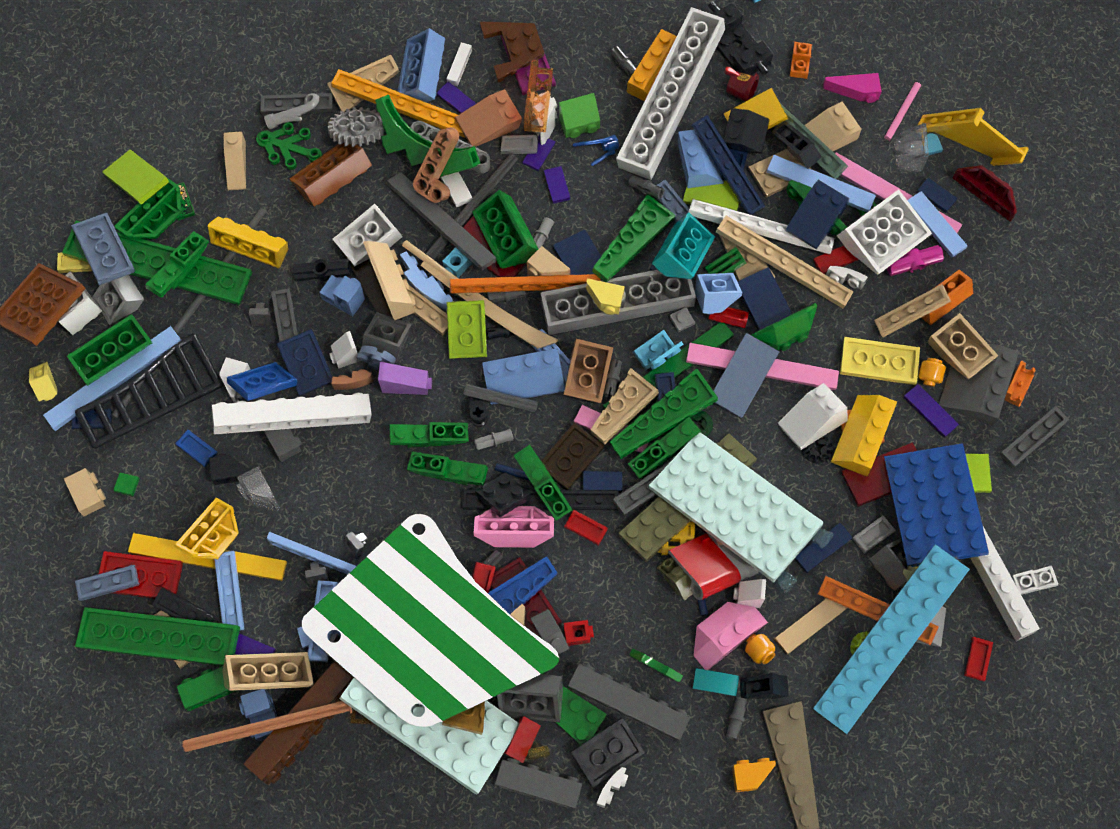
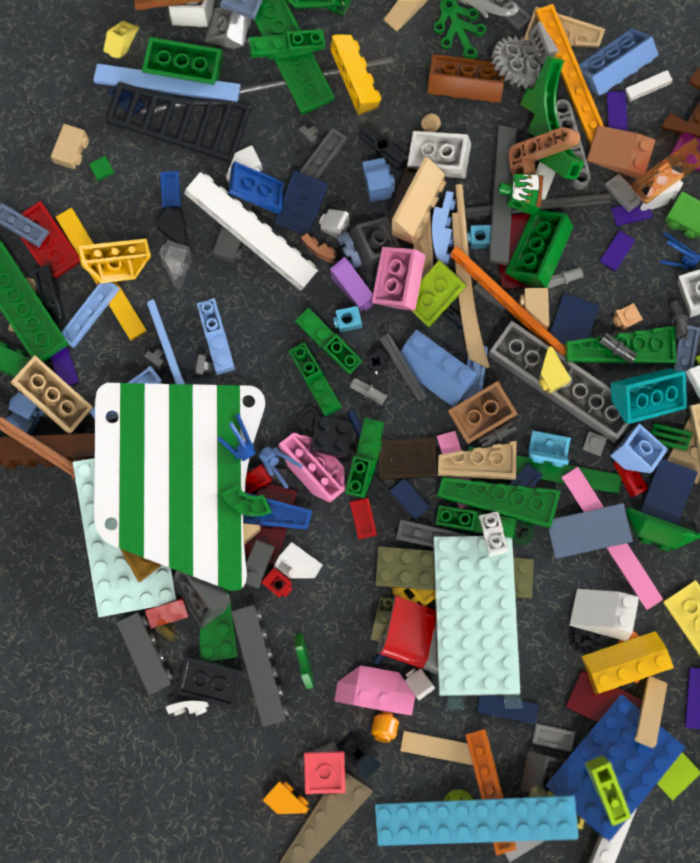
camera: 55 degrees right, 10 degrees up
(338, 223) = (430, 123): none -> tan tile
(343, 513) = (215, 336): none -> light blue slope
(365, 96) = (548, 47): none -> light grey slope
(425, 398) = (352, 312): none -> medium azure brick
(432, 341) = (398, 278): none -> bright pink slope
(455, 204) = (523, 192): none -> torso
(455, 561) = (246, 448): none -> blue plant
(478, 552) = (270, 459): none -> medium blue plant
(496, 598) = (245, 504): none -> green tile
(576, 604) = (297, 563): none -> white slope
(610, 219) = (626, 317): none -> light nougat bracket
(629, 240) = (617, 348): none -> dark grey pin
(685, 440) = (493, 534): none -> white slope
(715, 682) = (330, 715): teal slope -> none
(756, 723) = (324, 772): none -> coral tile
(915, 445) = (651, 712): none -> tan tile
(949, 518) = (608, 789): none -> lime slope

